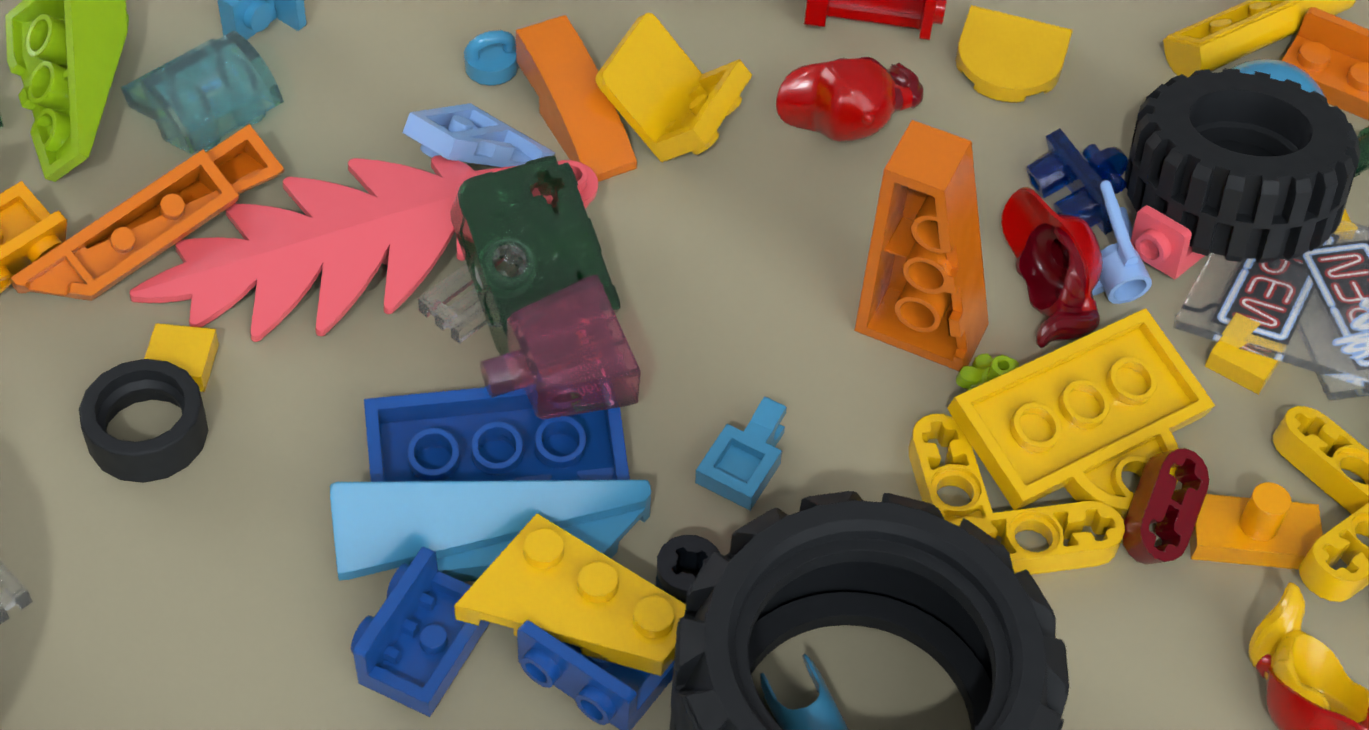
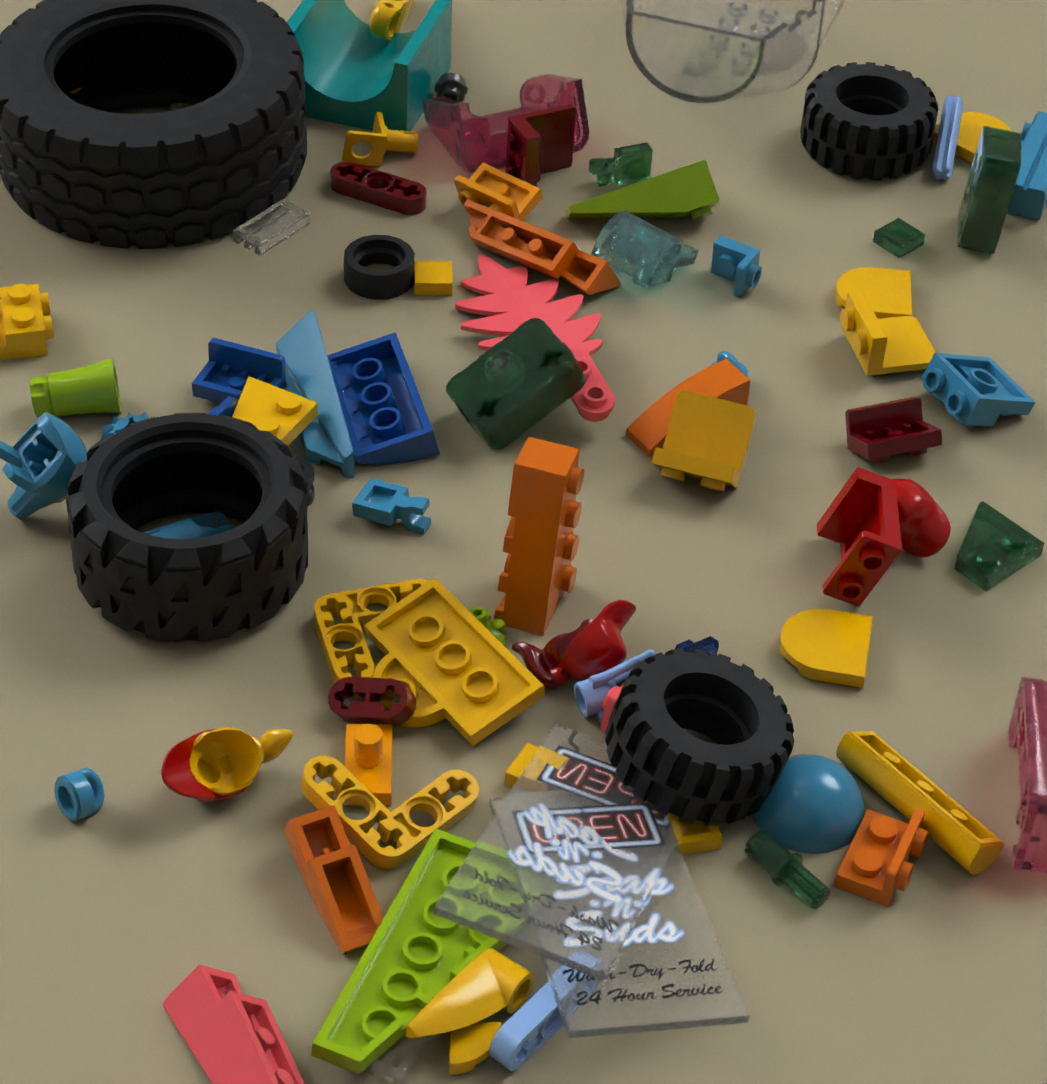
camera: 85 degrees right, 10 degrees down
(471, 137) = (632, 361): light blue wing -> none
(566, 354) = (432, 394): clear pink torso -> none
(847, 97) = (731, 542): red hair -> none

